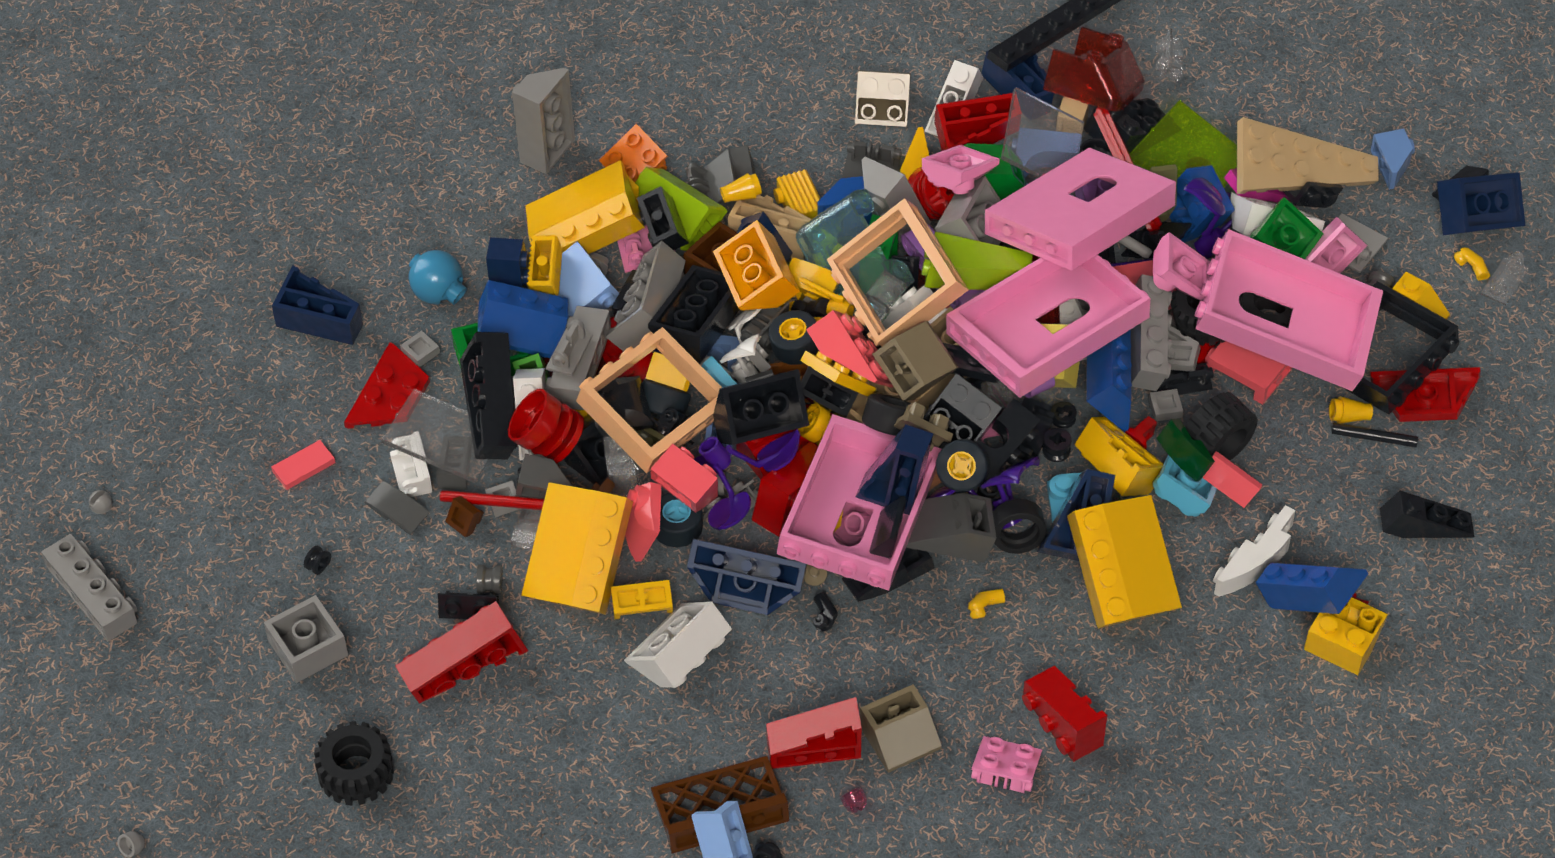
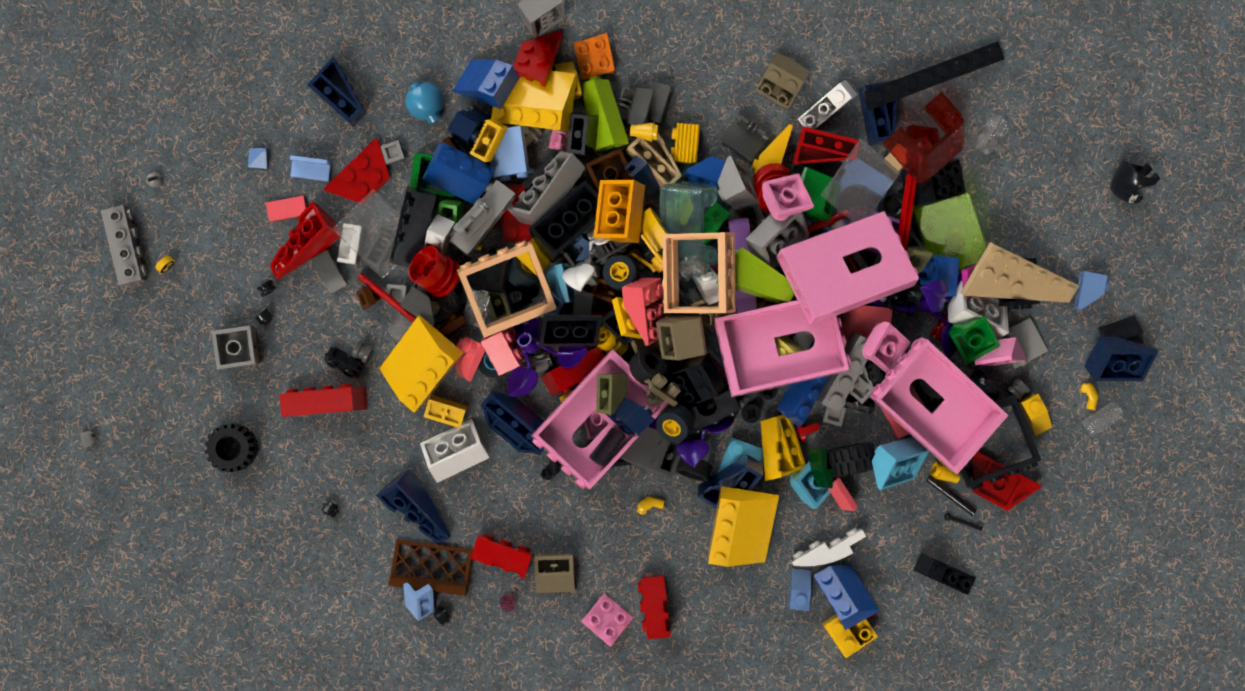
camera: 25 degrees right, 35 degrees up
(158, 587) = (165, 264): none -> yellow tile
(237, 423) = (258, 158): none -> medium blue slope
(315, 403) = (310, 168): none -> light blue panel
(329, 594) = (264, 317): none -> black hinge
(353, 473) = (308, 239): none -> red wedge
(514, 215) = (487, 82): none -> blue slope
(535, 784) = (330, 509): none -> black plate
(560, 177) = (538, 57): none -> red wing
(650, 728) = (410, 498): none -> dark blue wedge
(855, 453) = (610, 392): none -> olive slope
(1250, 618) = (800, 589): none -> medium blue slope
(1282, 404) = (898, 462): none -> medium azure slope
(1359, 33) = (1130, 179): none -> black piece
(1388, 460) = (948, 517): none -> black hinge

